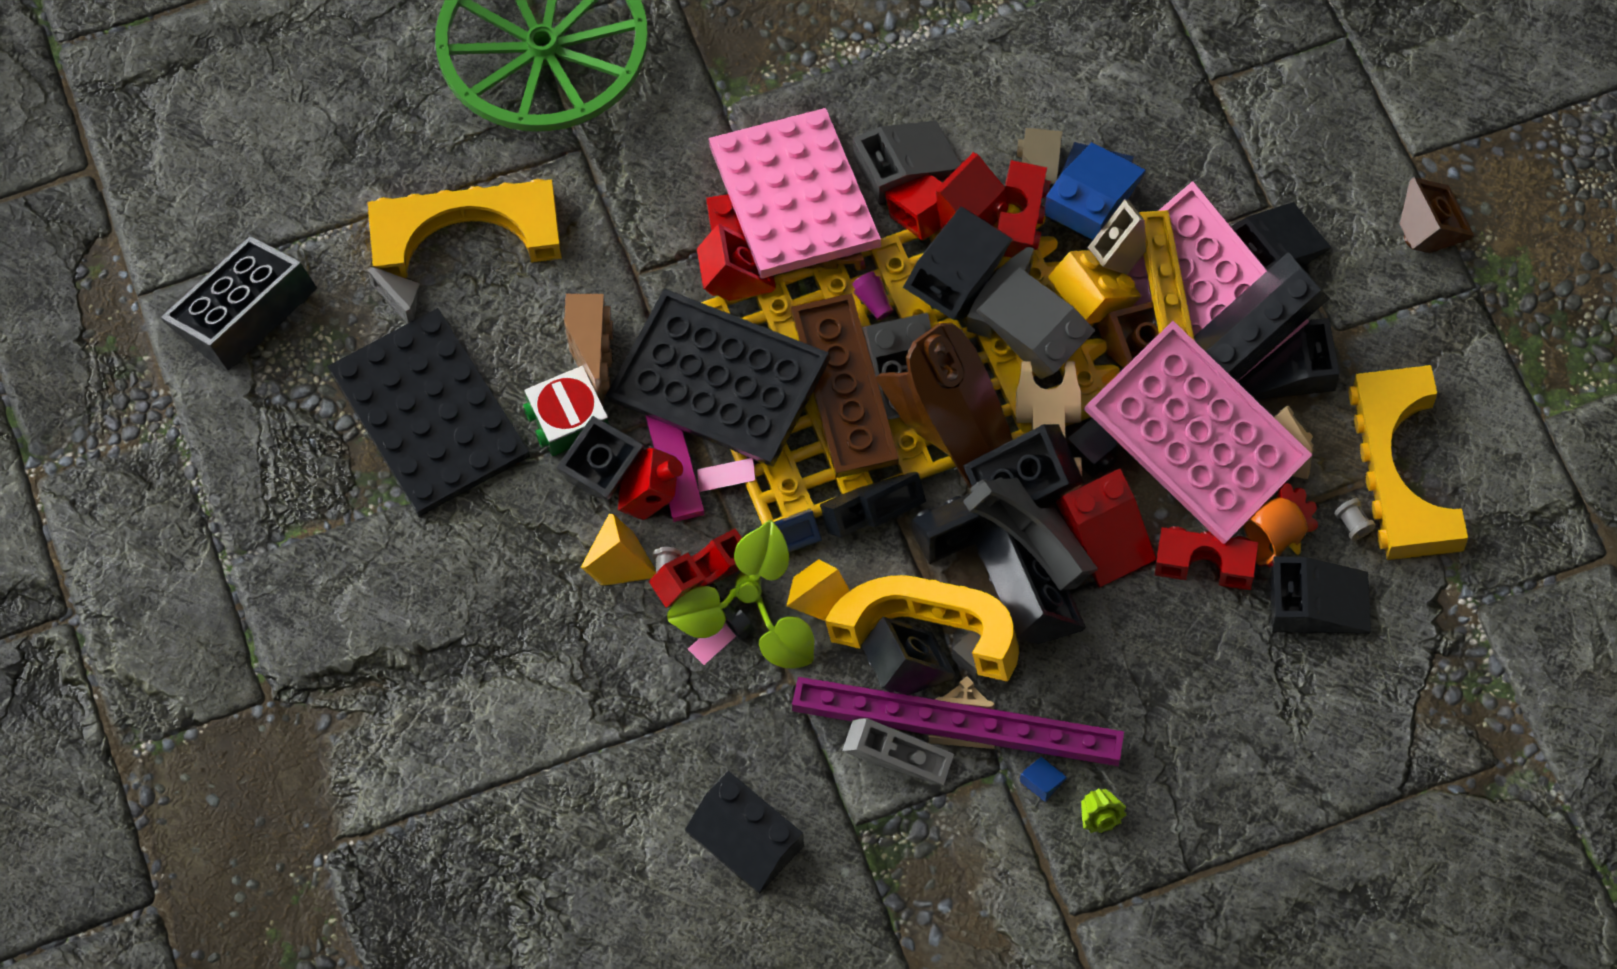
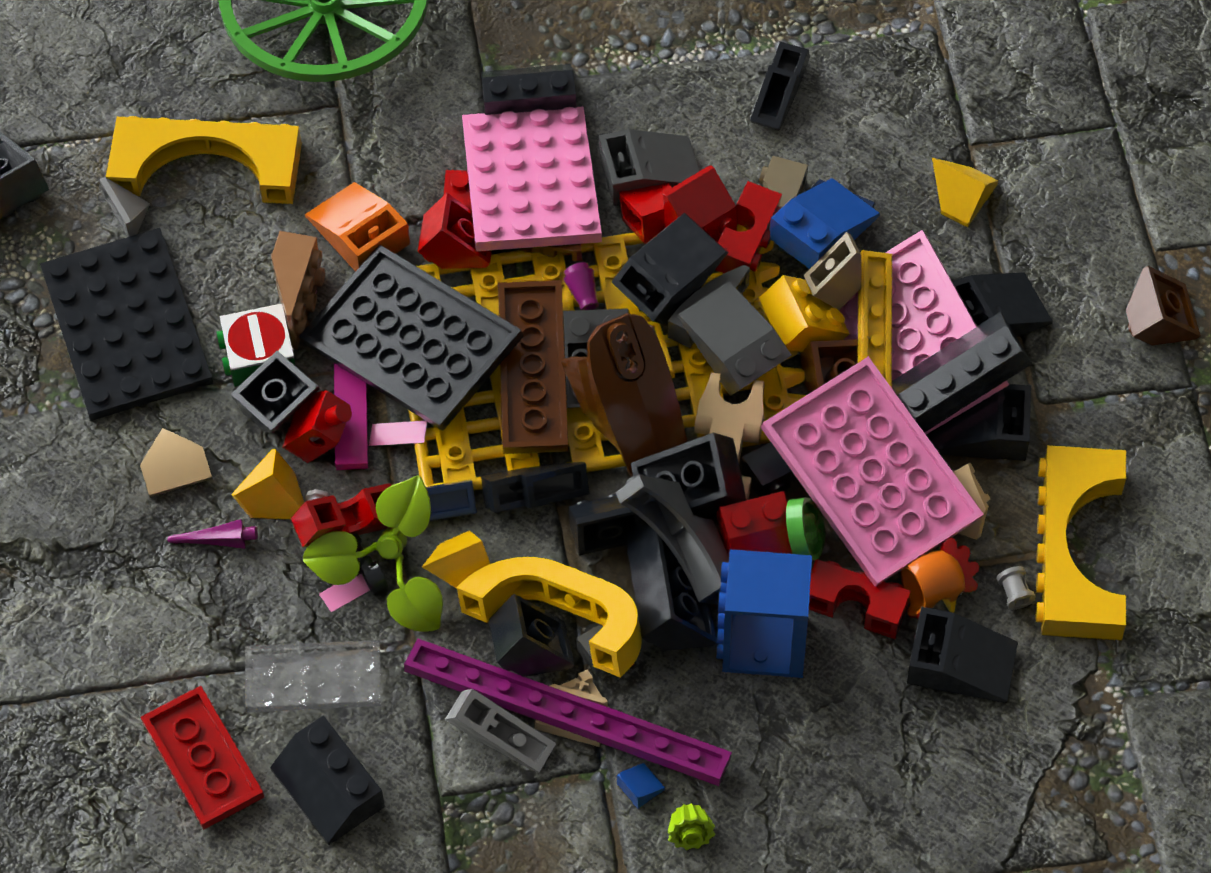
camera: 10 degrees right, 5 degrees down
(514, 545) = (173, 464): none -> tan slope
(584, 607) = (229, 534): none -> magenta piece
(618, 832) = (202, 757): none -> red plate
(635, 269) = (358, 222): none -> orange slope
(704, 732) = (312, 676): none -> clear plate
(767, 99) = (528, 89): none -> black slope
(1014, 53) = (780, 86): none -> black slope
(1130, 592) = (764, 613): none -> blue hose
(1146, 501) = (805, 527): none -> bright green piece
(1214, 129) = (961, 190): none -> yellow slope

